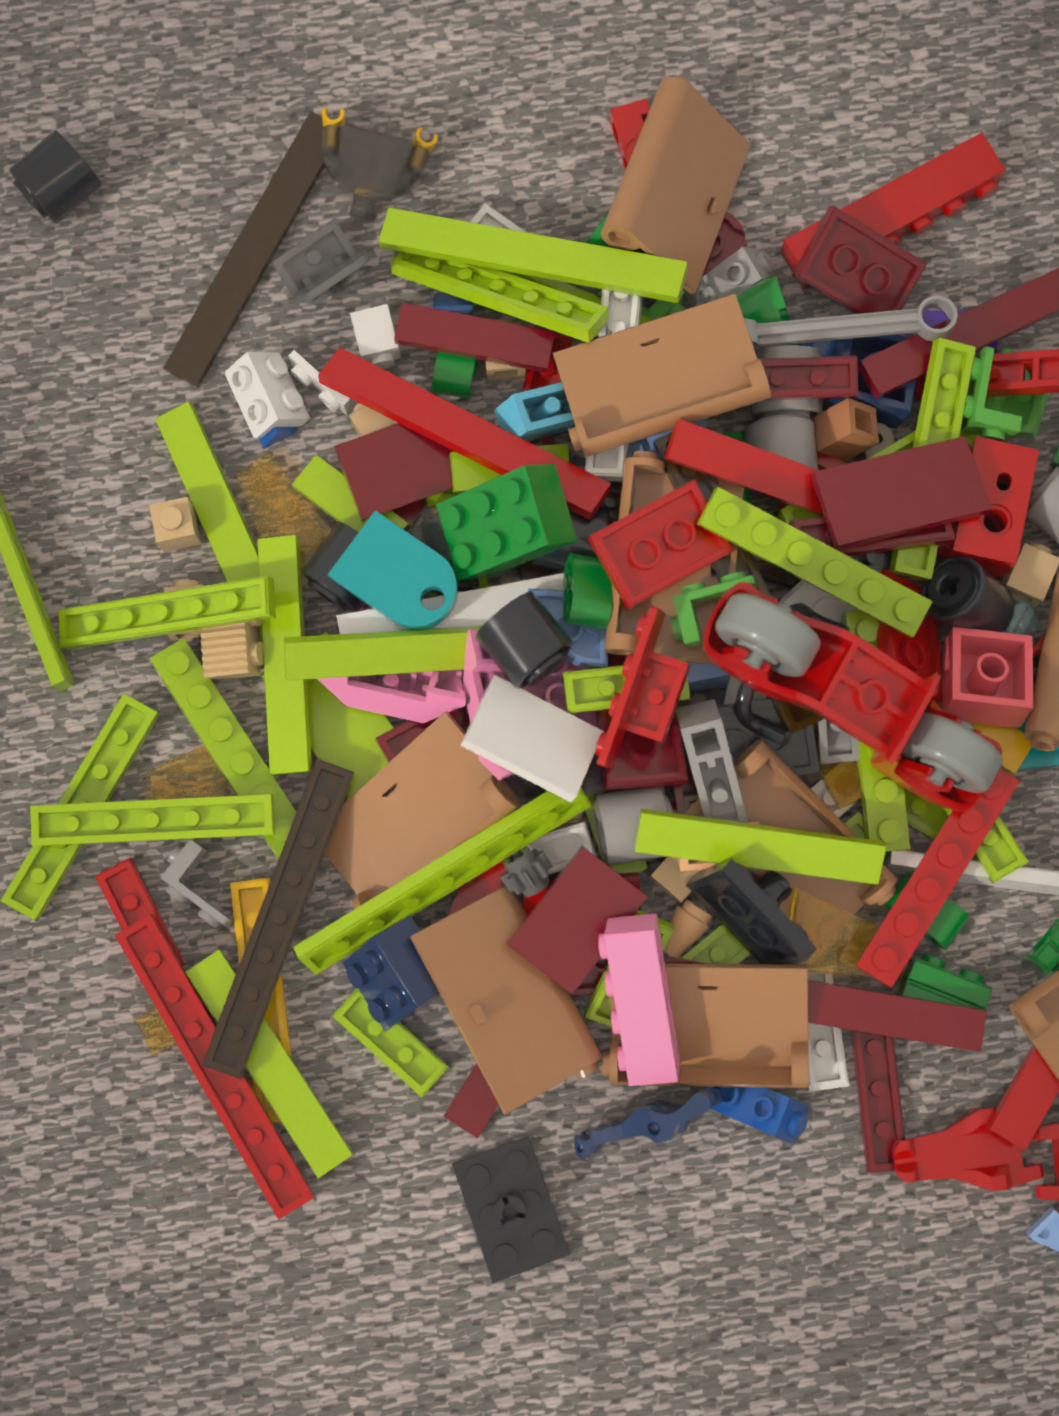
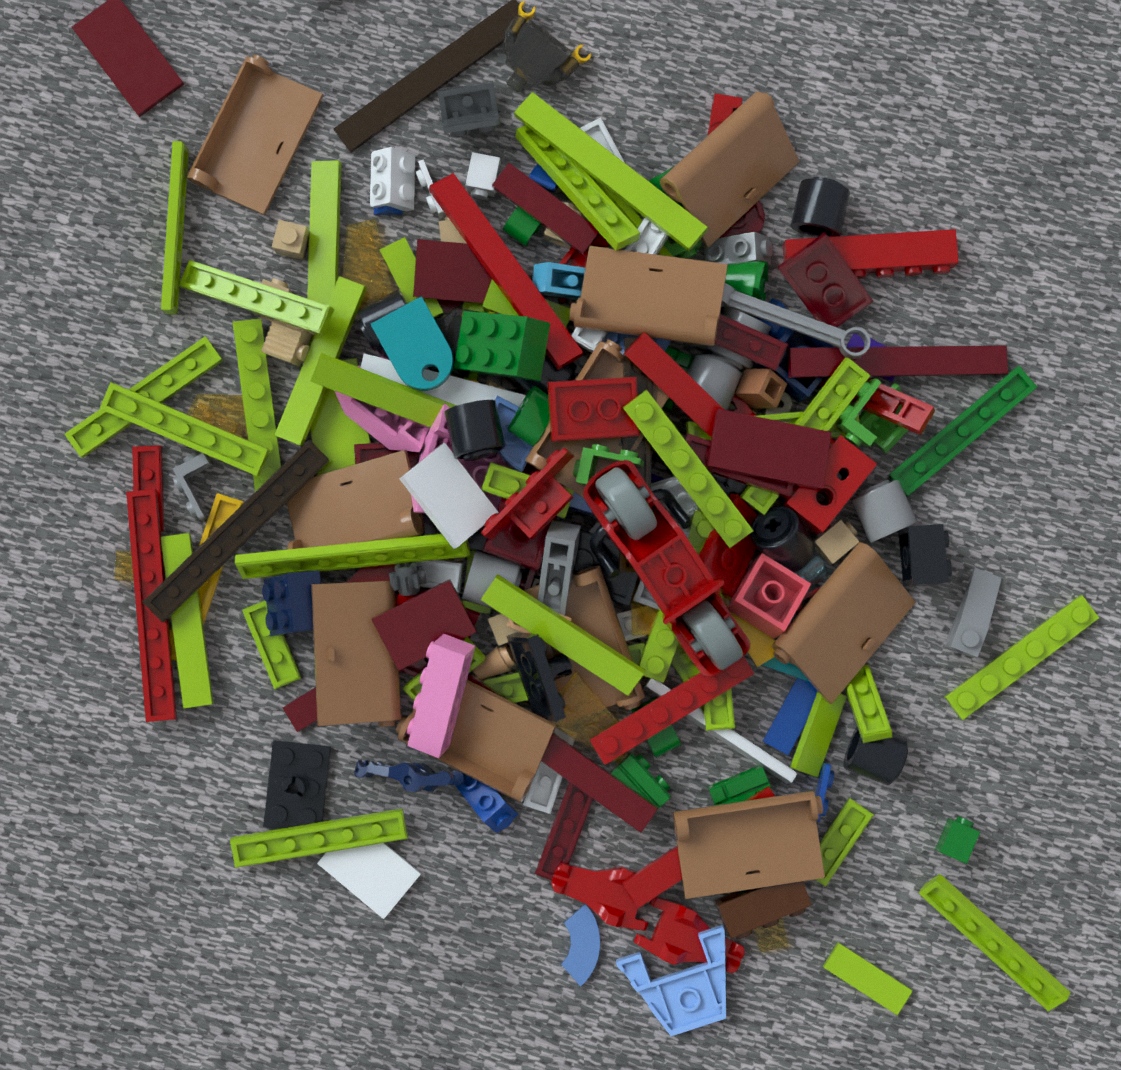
camera: 20 degrees right, 5 degrees up
(59, 422) = (244, 141): none -> medium nougat door
(571, 1262) = (319, 838): none -> lime tile
(654, 1270) = (372, 874): none -> white tile
(805, 182) = (820, 207): none -> black piece
(976, 1234) = (584, 944): none -> medium blue tile

